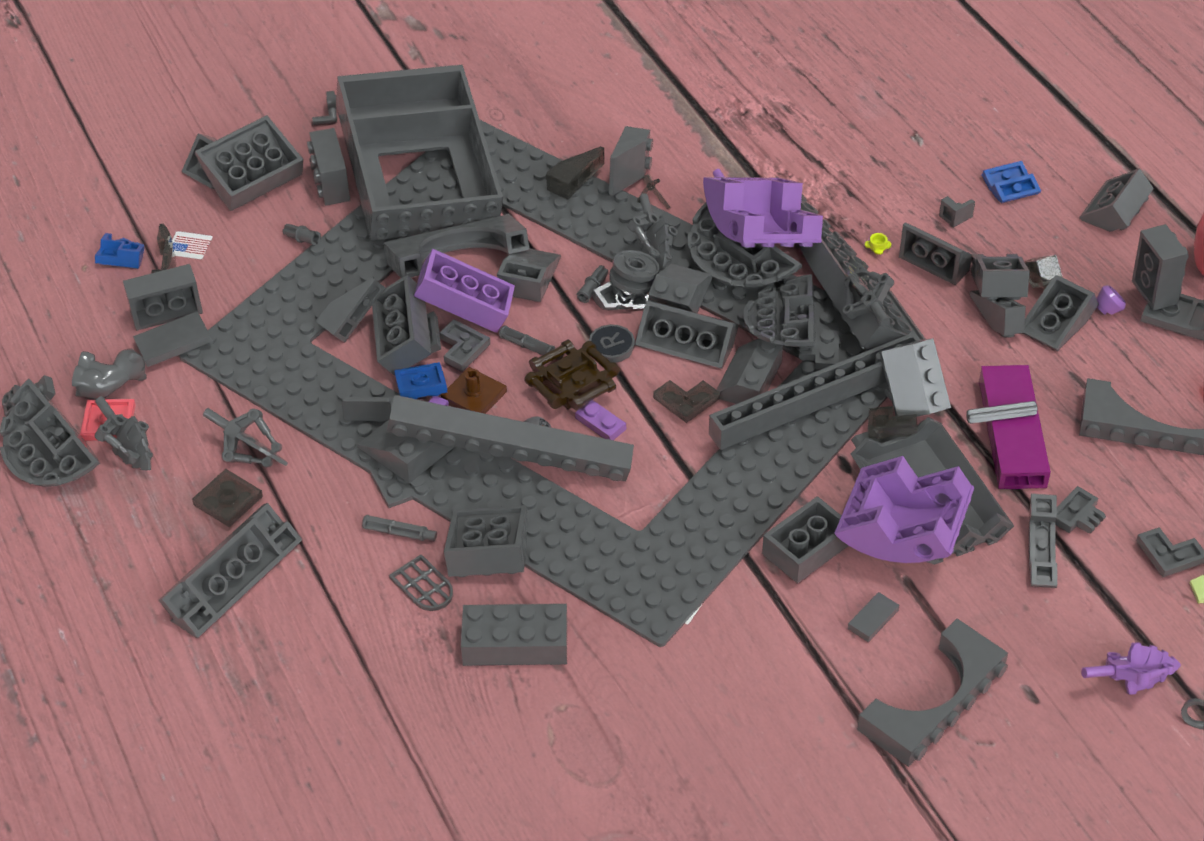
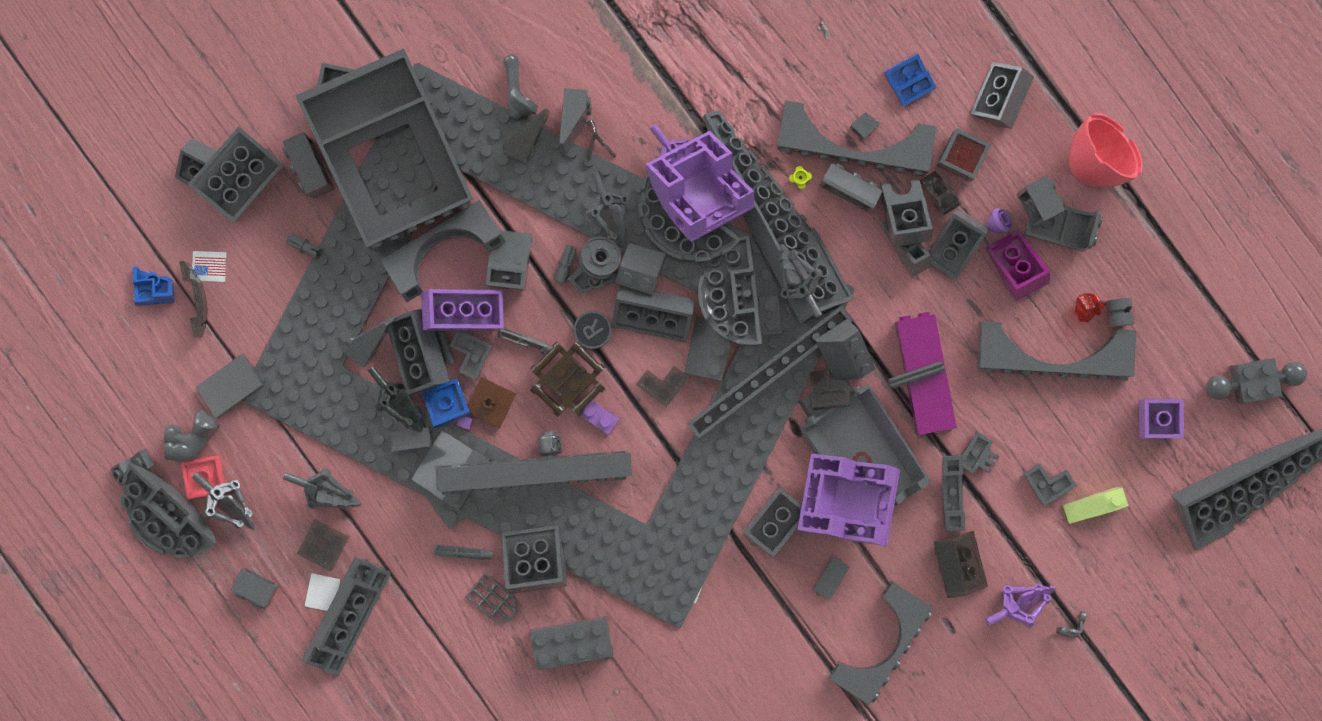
camera: 10 degrees left, 40 degrees up
(127, 527) = (254, 587): none -> dark grey brick
(162, 296) = (208, 348): dark grey brick -> none
(202, 546) = (321, 591): none -> white sticker
(331, 106) = (287, 69): dark grey plate -> none
(367, 367) = (400, 402): none -> pearl dark grey bar
(572, 142) = (518, 105): none -> dark grey hair
(884, 209) = (801, 136): none -> dark grey arch
(1048, 619) = (960, 564): none -> clear smoke slope
(1070, 239) = (963, 155): none -> piece
(1135, 343) = (1018, 265): none -> magenta slope

